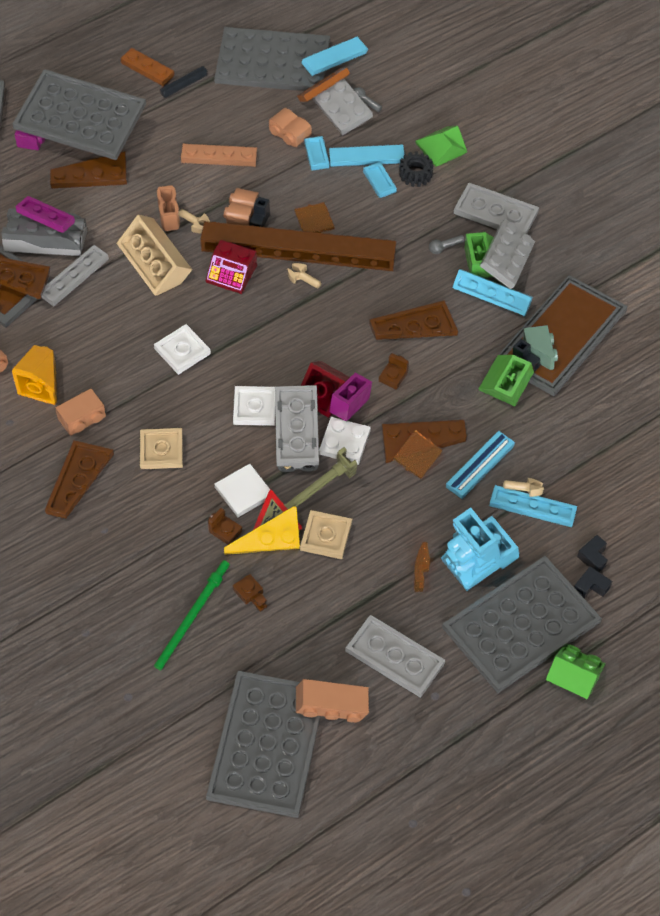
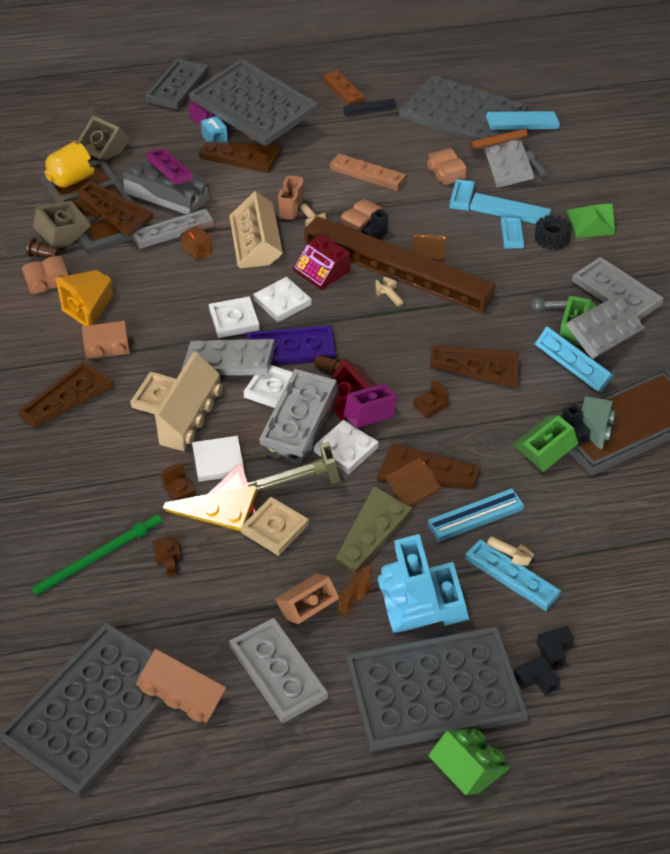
camera: 25 degrees right, 10 degrees down
(52, 155) = (214, 130): none -> medium azure brick
(105, 284) = (196, 243): none -> clear orange brick
(194, 450) = (187, 403): none -> tan slope
(201, 391) = (235, 356): none -> light grey plate
(213, 315) = (282, 299): none -> white plate
(246, 360) = (298, 344): none -> dark purple tile
(293, 367) = (327, 363): none -> reddish brown pin
(389, 588) = (307, 598): none -> nougat brick
(405, 501) = (372, 529): none -> olive wing

